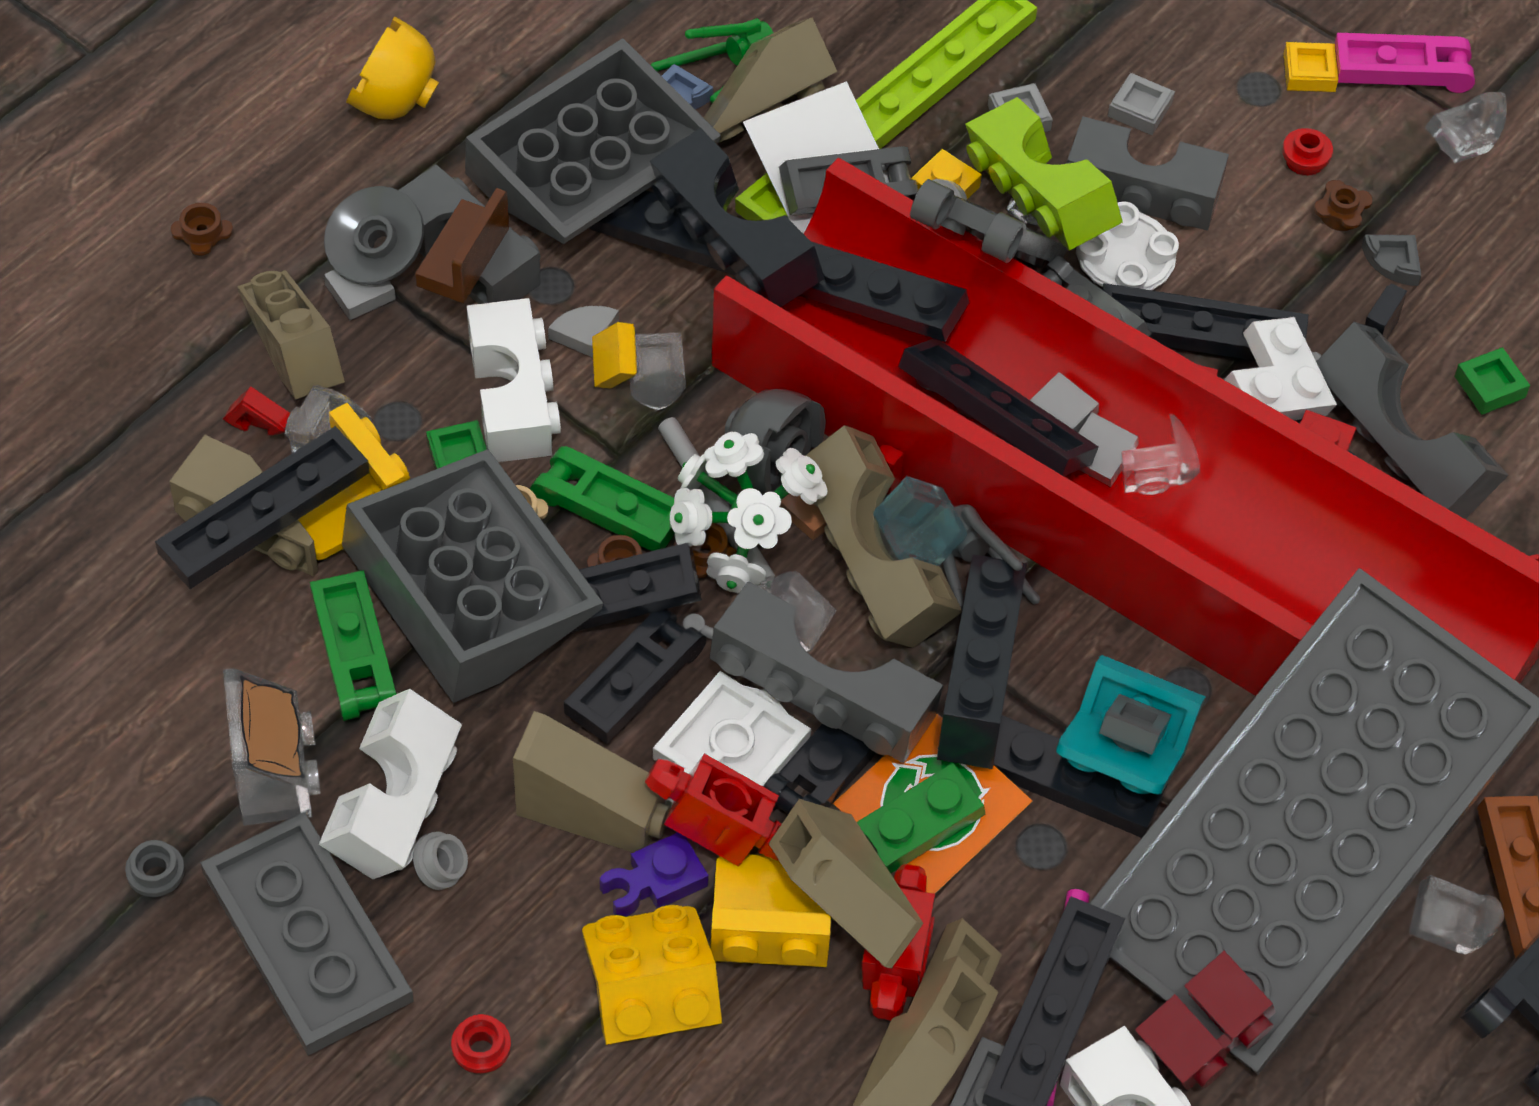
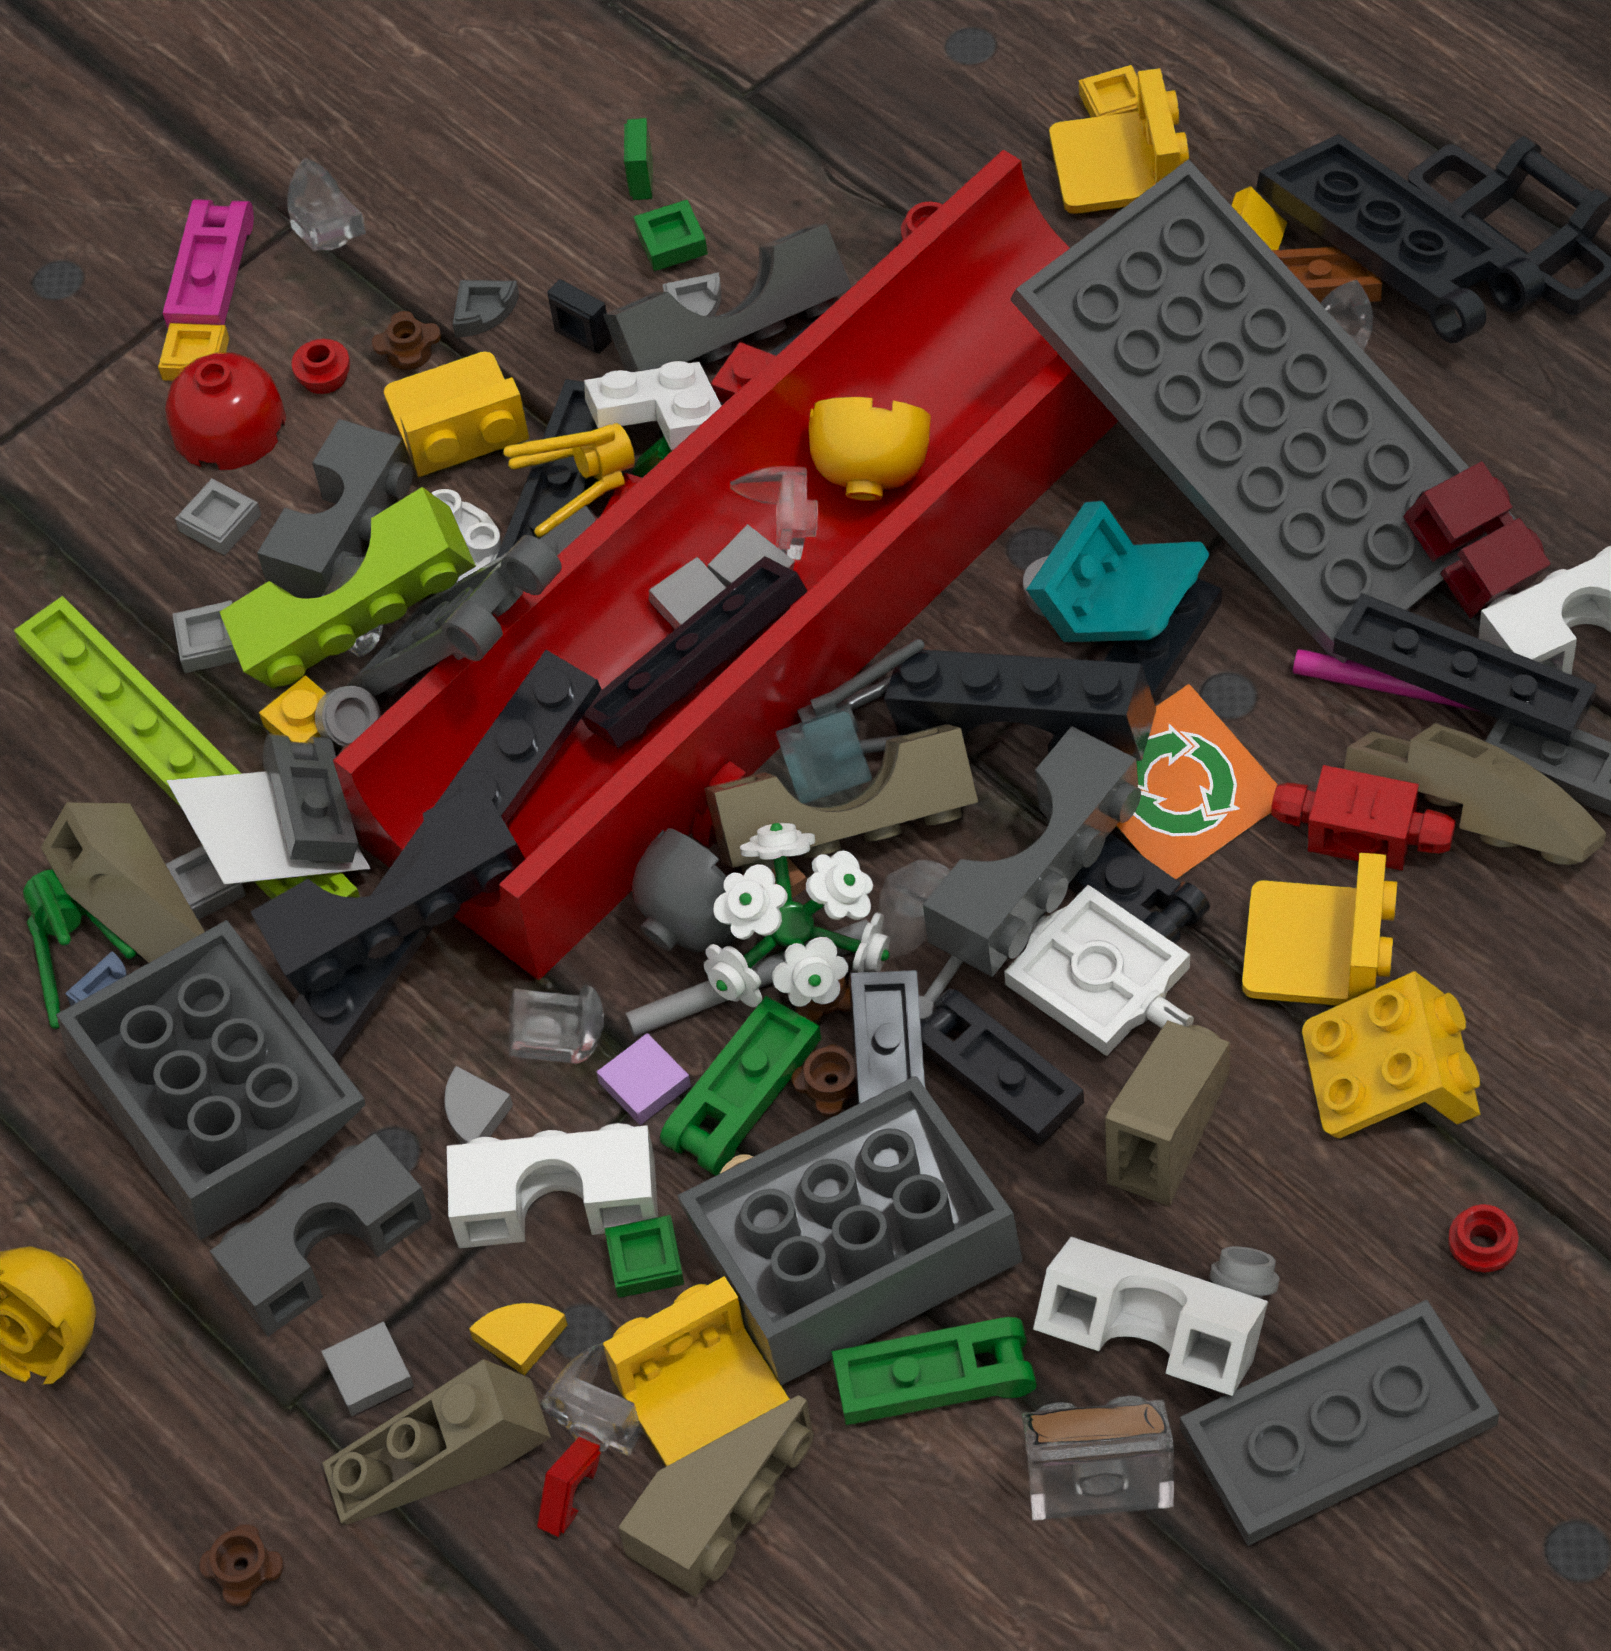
camera: 75 degrees left, 0 degrees up
(151, 855) = (1243, 1579): dark grey plate -> none
(262, 507) = (759, 1442): black plate -> none
(364, 219) = (320, 1295): dark grey dish -> none
(388, 377) = (519, 1333): none -> yellow tile
(464, 247) = (369, 1203): reddish brown panel -> none
(614, 355) = (536, 1064): yellow tile -> none
(616, 437) = (643, 1079): none -> lavender tile
(660, 871) = (1265, 1055): dark purple plate -> none
(716, 807) = (1209, 964): red piece -> none
(846, 878) = (1322, 830): dark tan slope -> none
(922, 817) = (1216, 807): green plate -> none
(1134, 725) = (1117, 566): dark grey plate -> none
(1217, 335) = (596, 453): none -> yellow plant
(1228, 513) = (868, 445): none -> yellow cylinder
(1245, 90) = (224, 411): none -> red cylinder
(1264, 244) = (456, 412): none -> yellow bracket
(1427, 408) = (697, 294): none -> light grey tile

